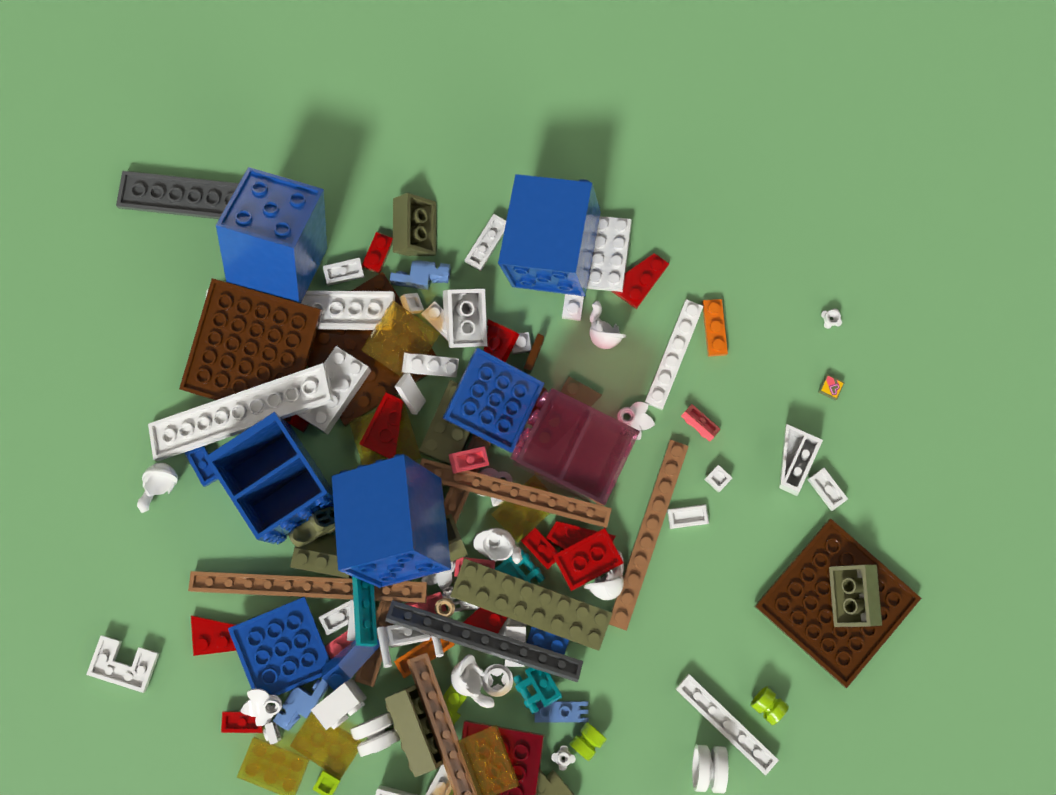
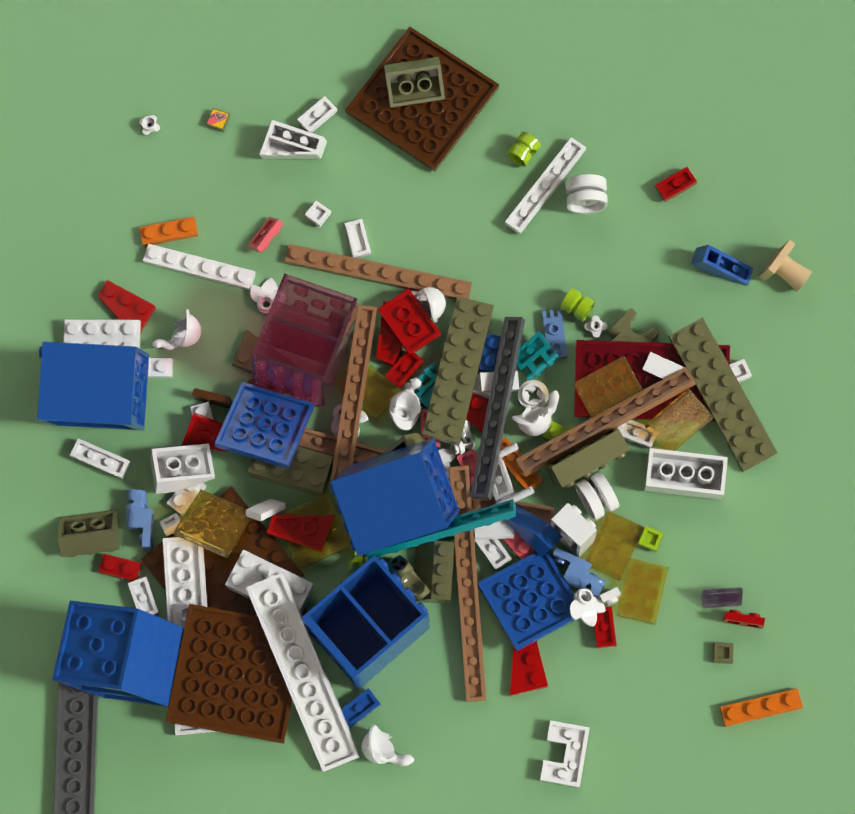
camera: 85 degrees left, 5 degrees down
(430, 365) = (234, 493): white plate -> none
(445, 601) = (470, 443): tan plate -> none
(468, 460) = (326, 442): coral plate -> none

